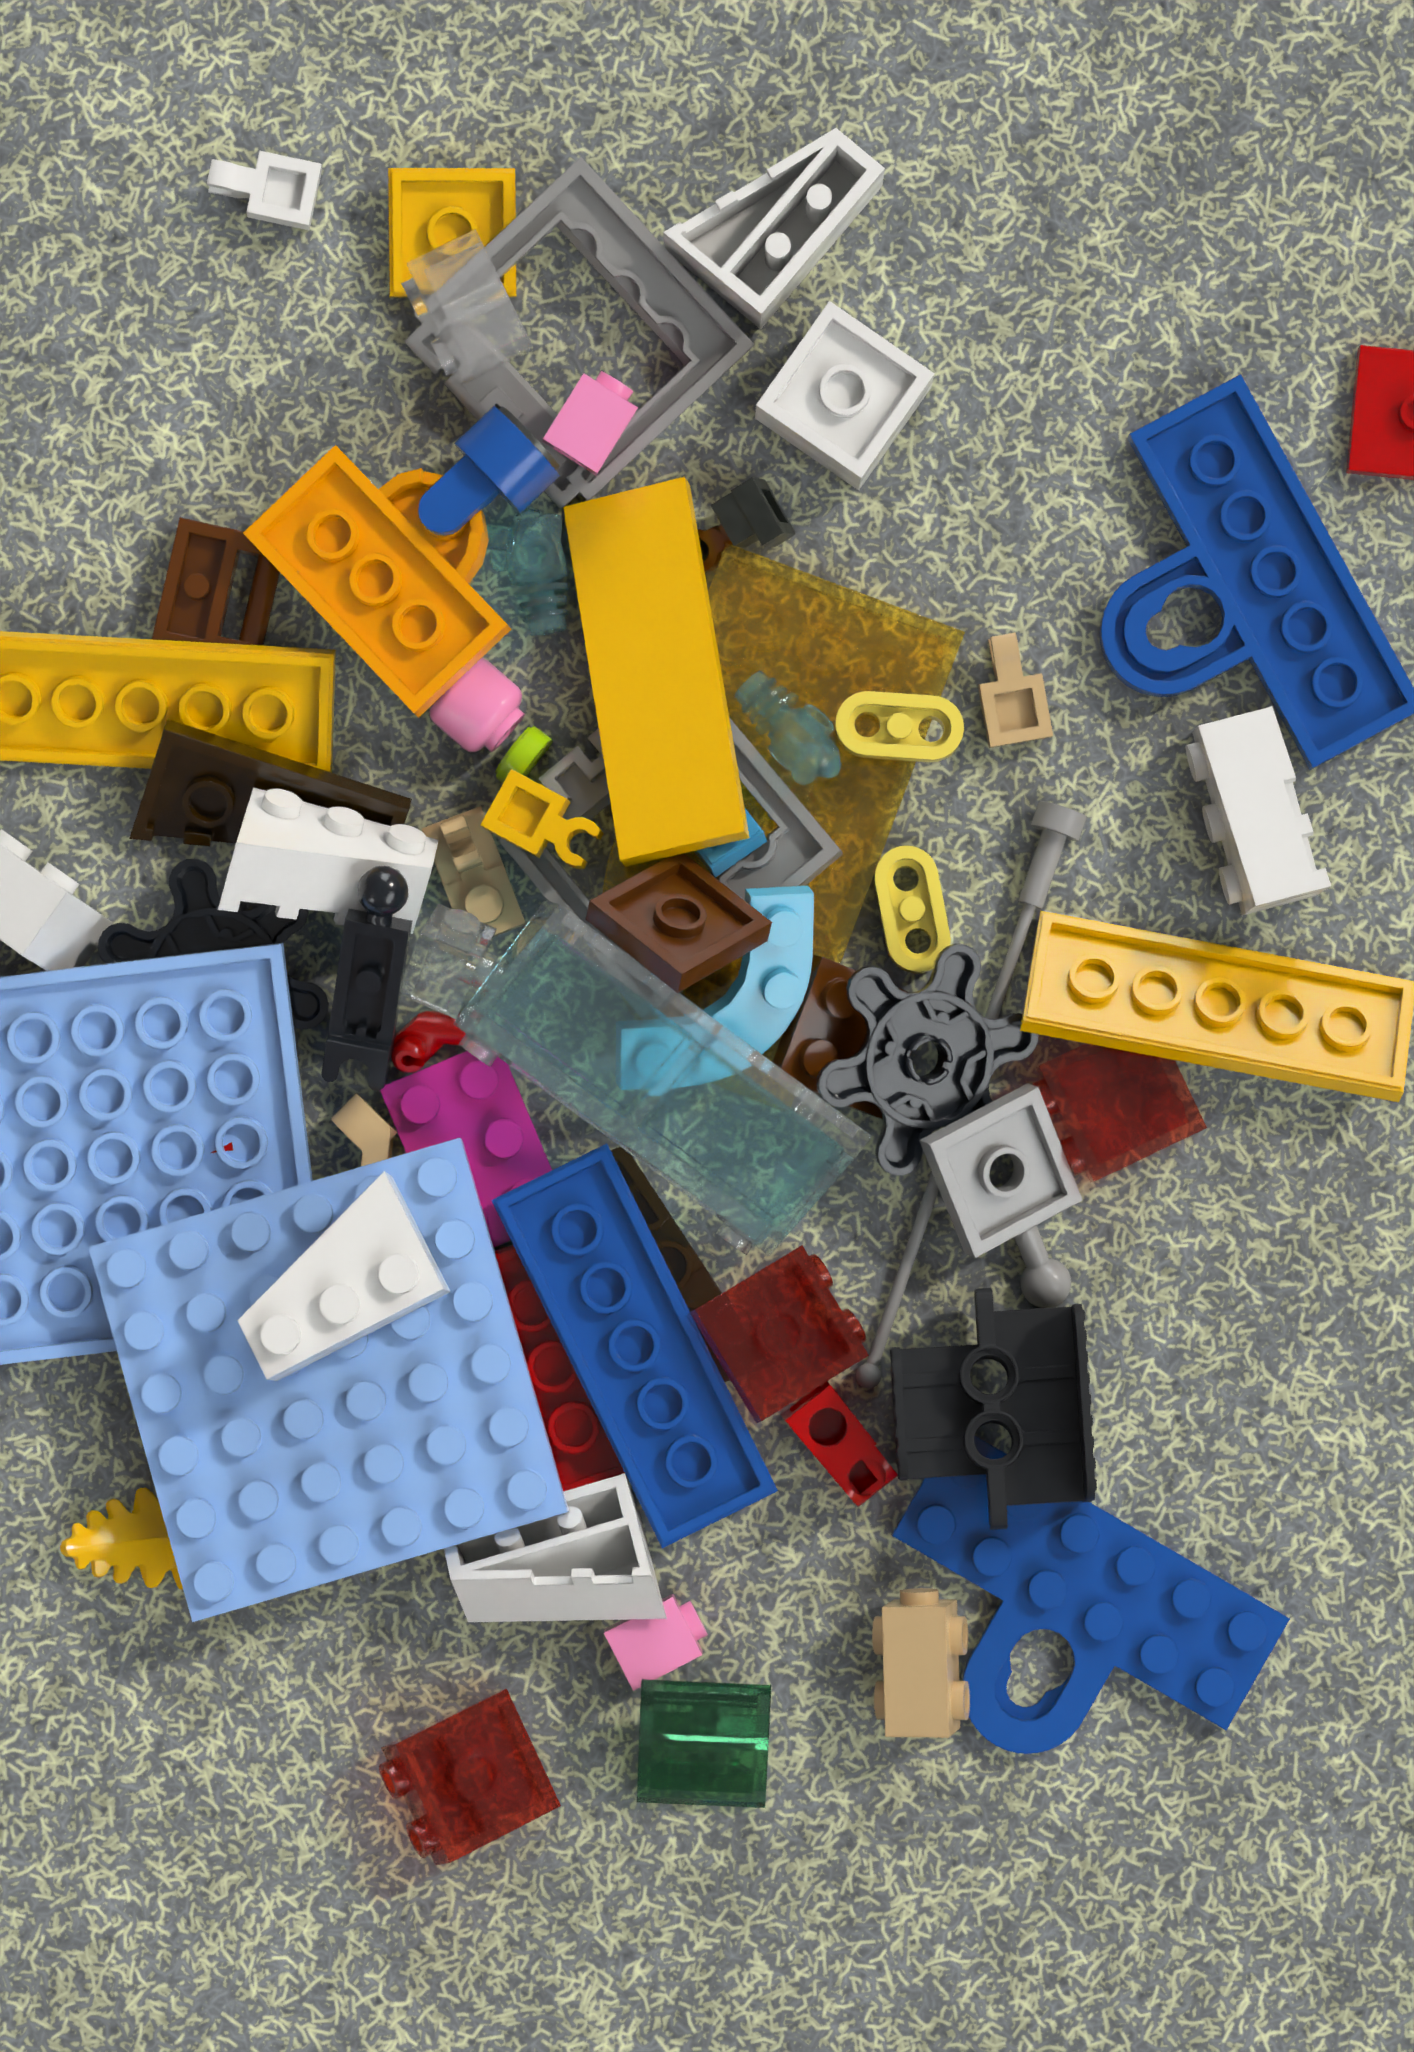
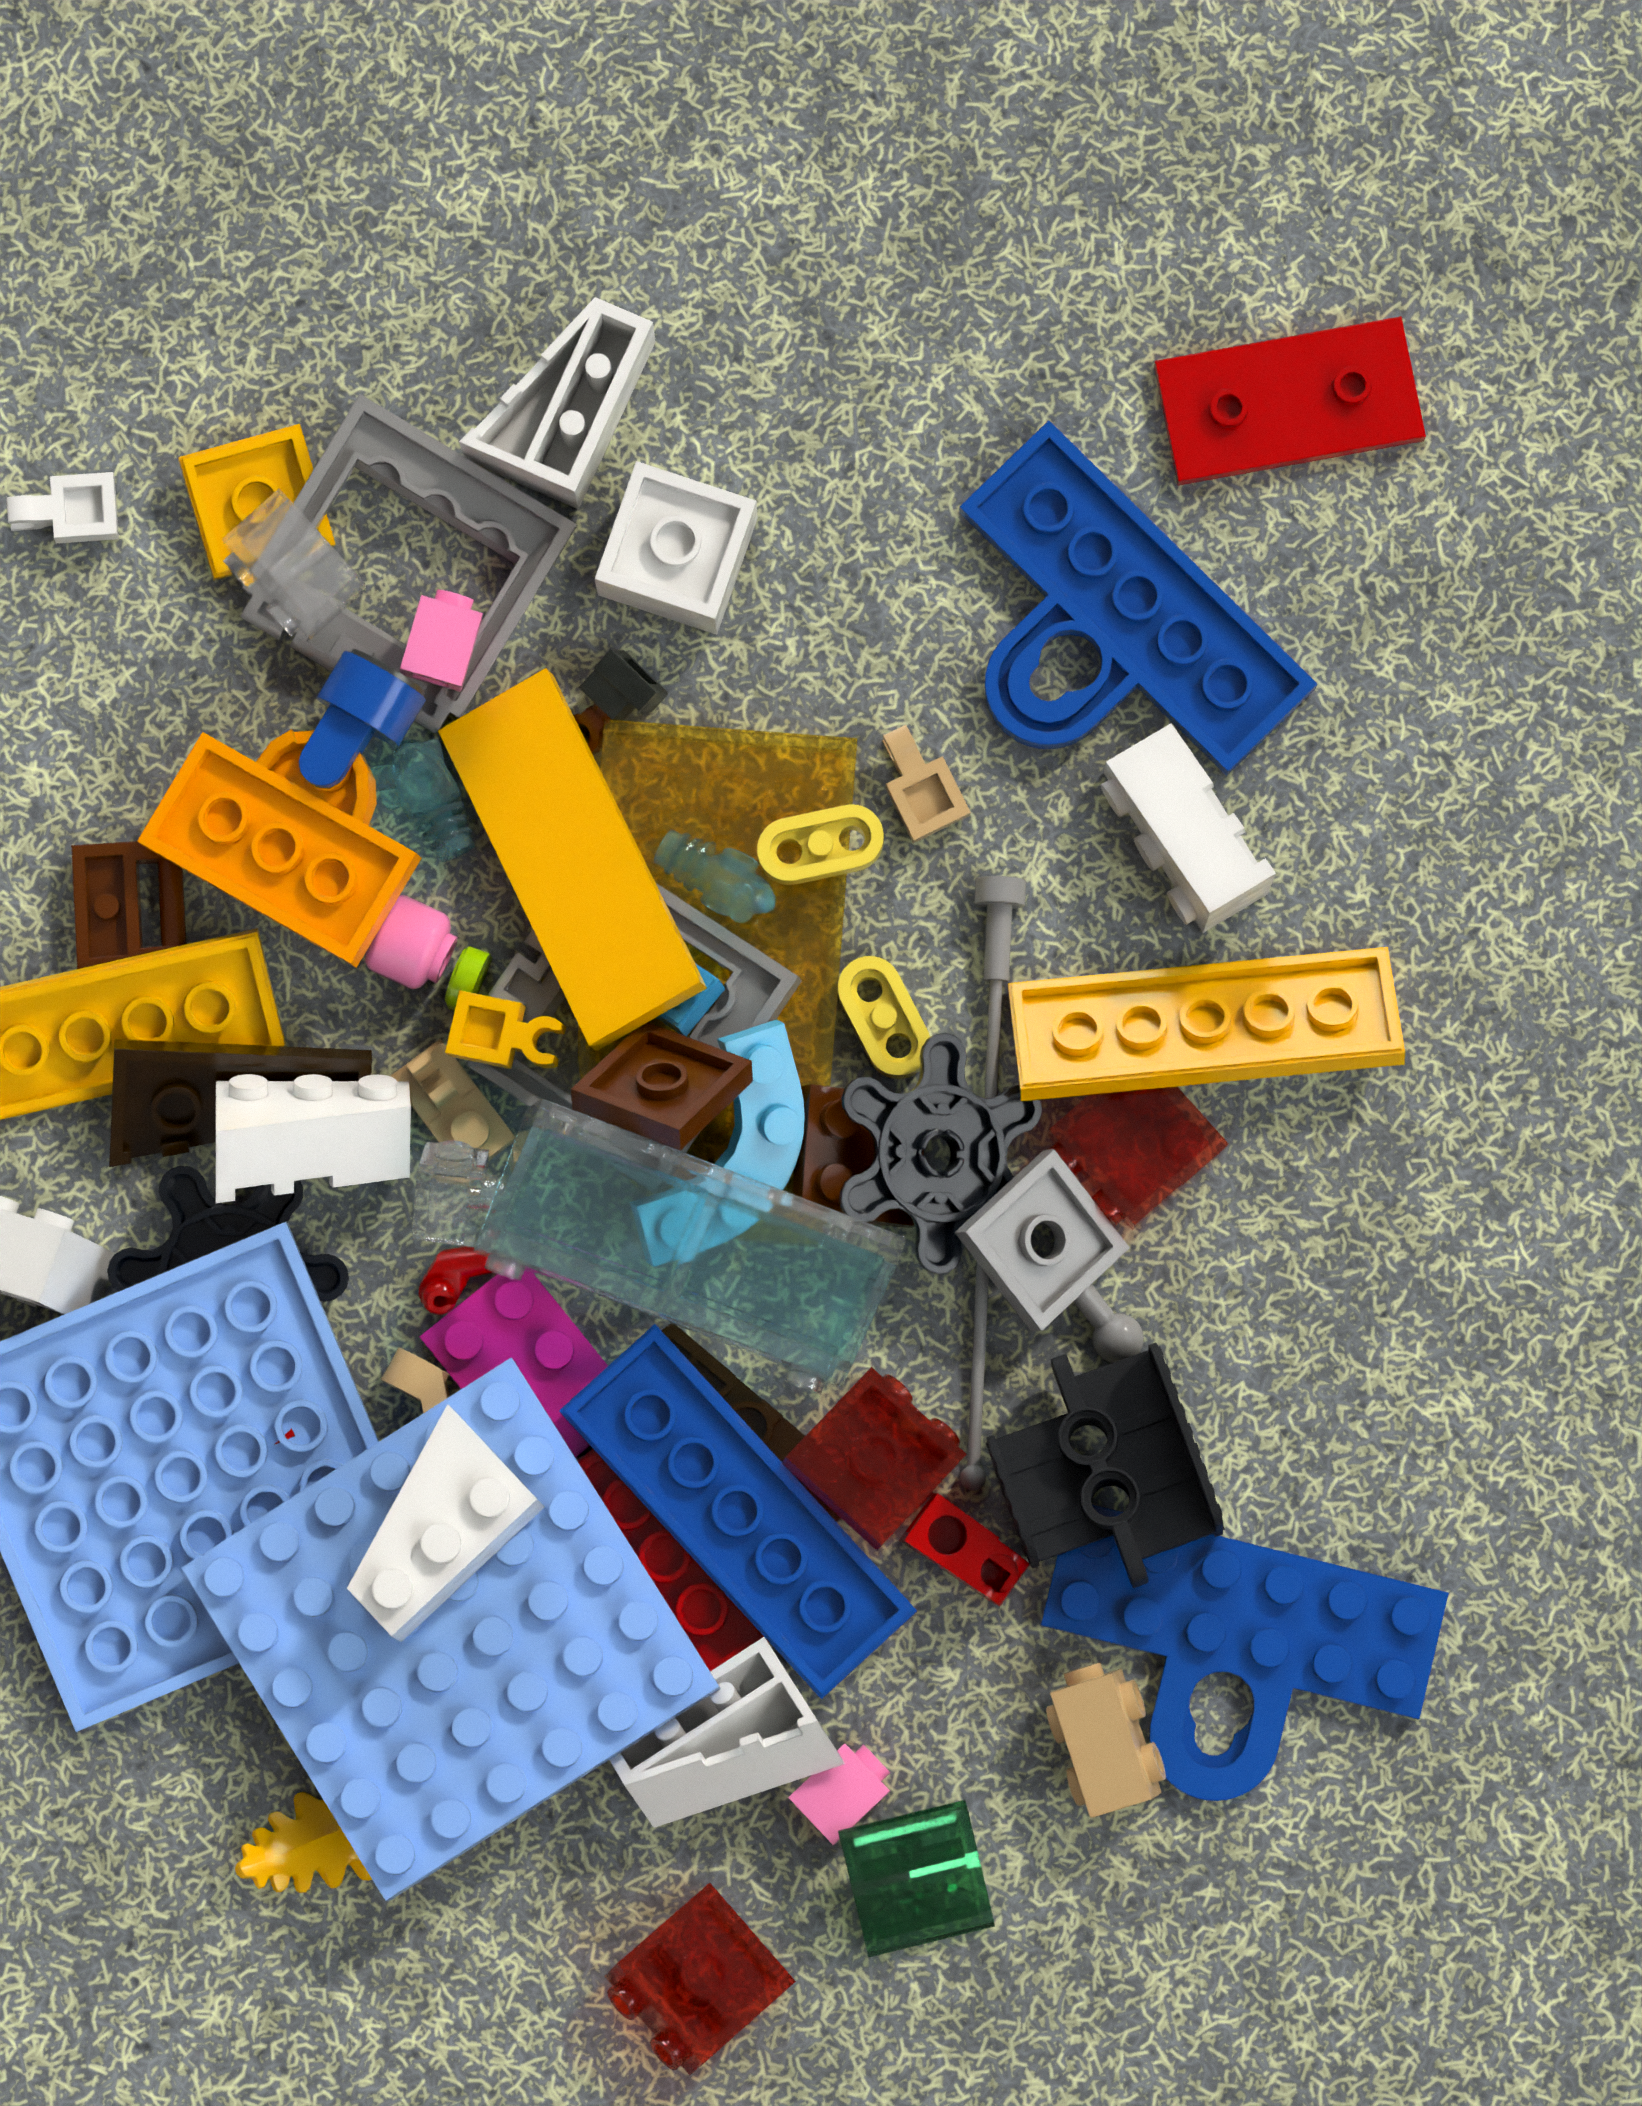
camera: 15 degrees left, 5 degrees down
(369, 978) = (380, 1230): black plate -> none

